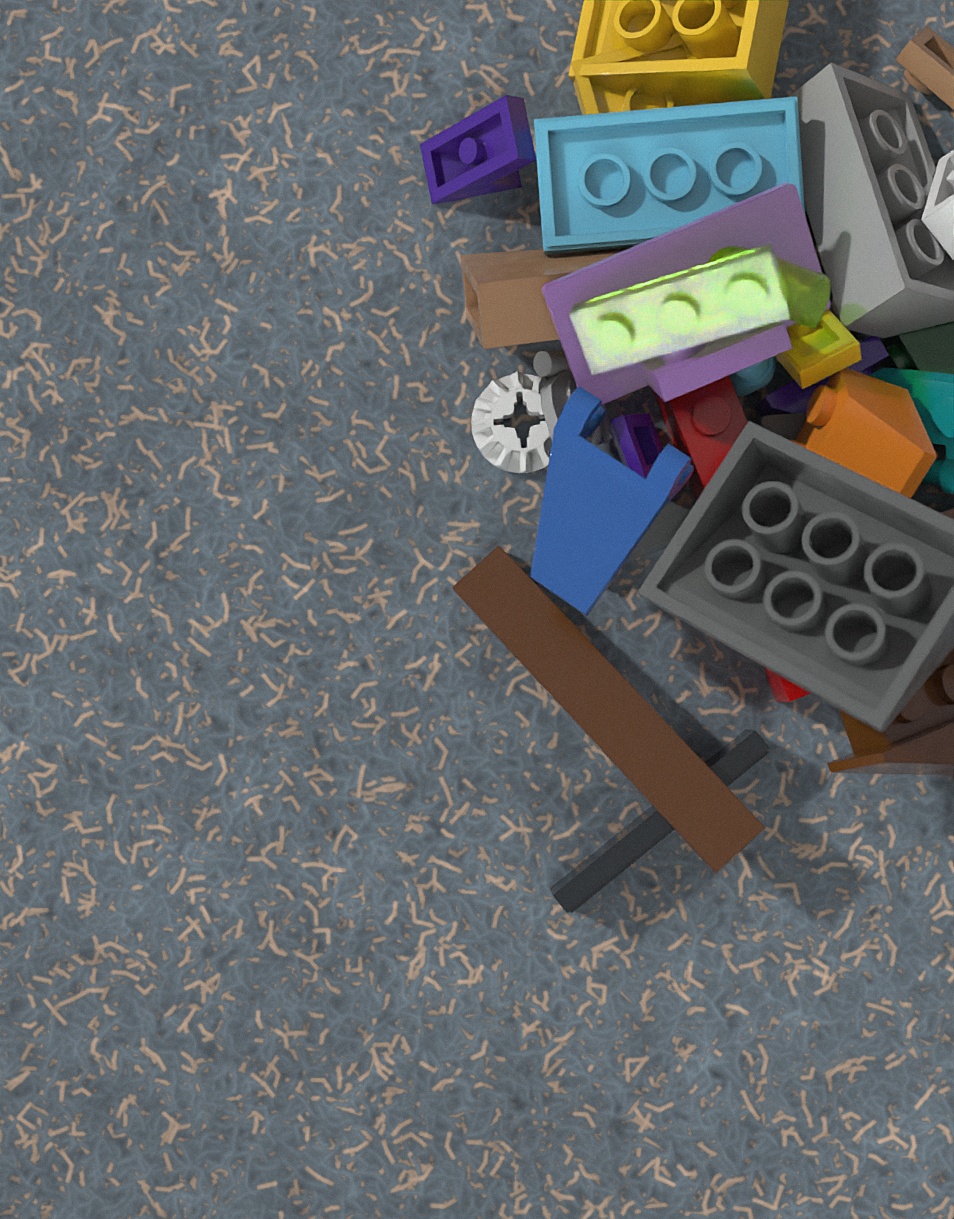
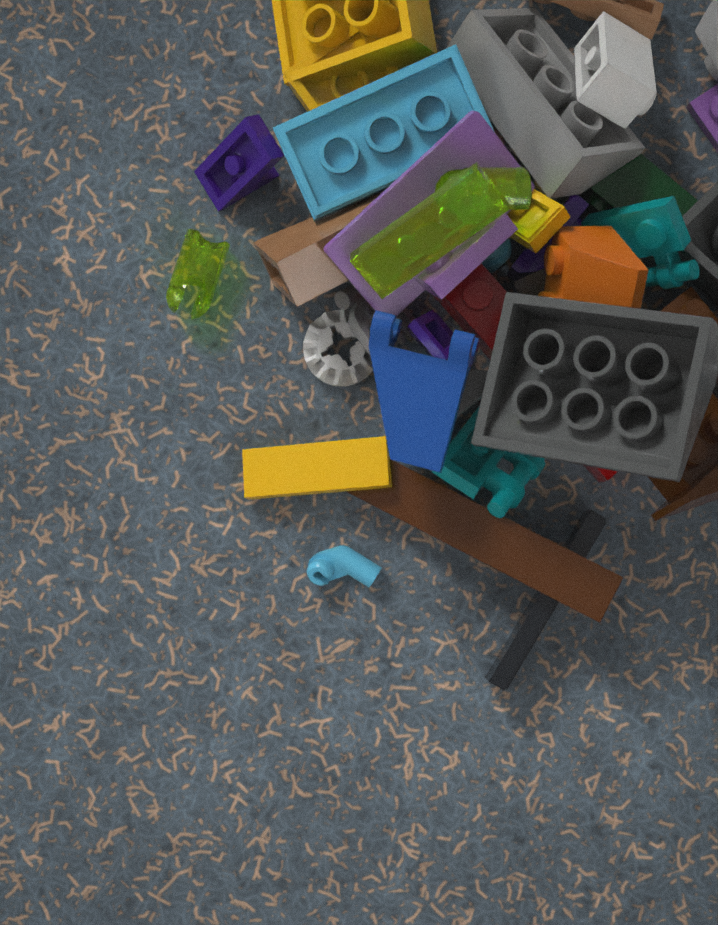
camera: 20 degrees left, 0 degrees up
(383, 260) = (199, 266): none -> clear neon green piece
(423, 683) = (341, 562): none -> medium azure arm
(437, 557) = (316, 468): none -> yellow tile
(629, 624) = (476, 467): none -> teal plate

